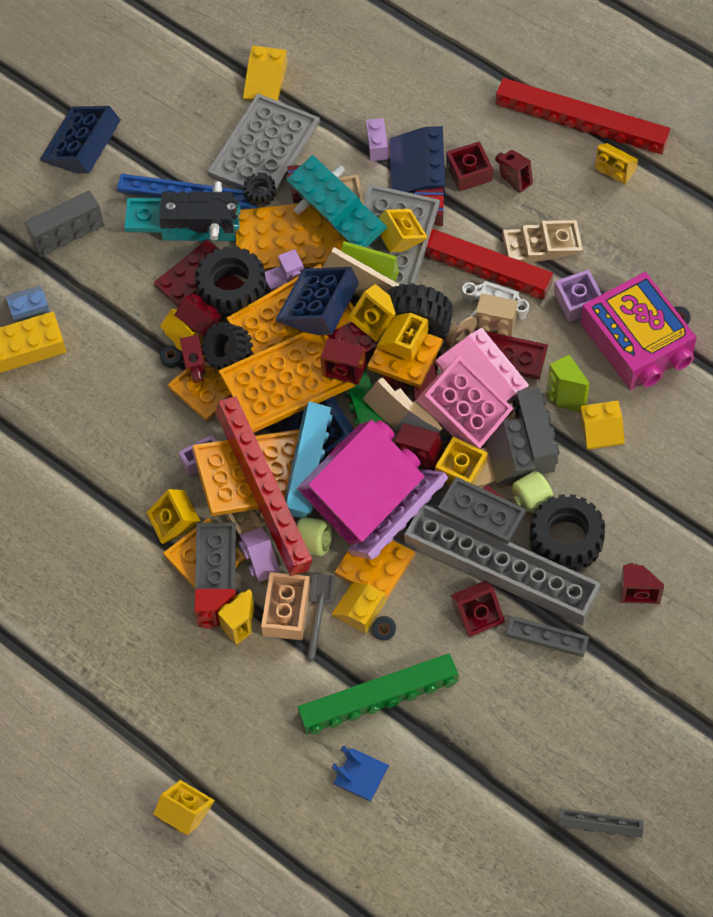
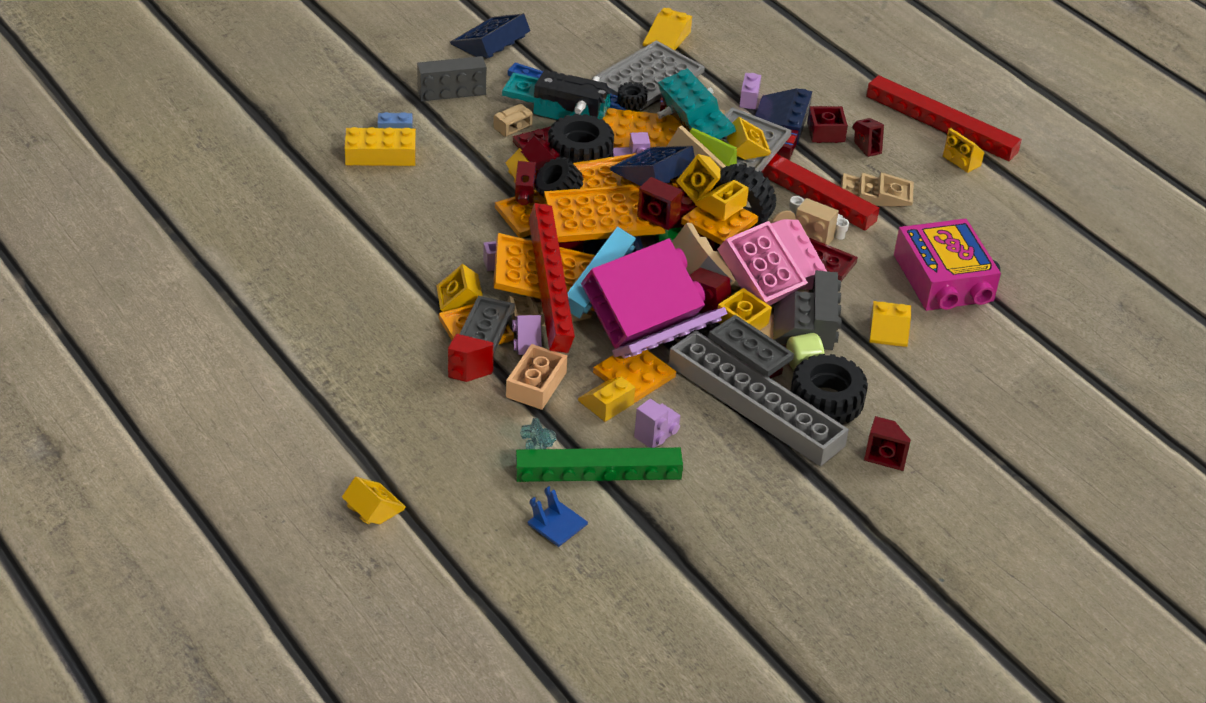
camera: 10 degrees right, 20 degrees down
(146, 259) = (512, 120): none -> tan brick
(171, 362) = (505, 188): black wheel -> none
(237, 617) = (488, 371): yellow slope -> none
(312, 684) = (540, 437): none -> clear light blue hips
(316, 535) = (587, 333): yellowish green head -> none
(321, 592) = (575, 377): dark grey piece -> none
(384, 635) = (621, 413): black wheel -> none
(417, 627) = (655, 423): none -> lavender brick
(477, 608) = (721, 426): dark red slope -> none
(547, 636) = (782, 464): dark grey plate -> none
(567, 384) = (864, 280): lime slope -> none
(574, 292) = (888, 225): lavender brick -> none
(603, 823) = (793, 626): dark grey plate -> none

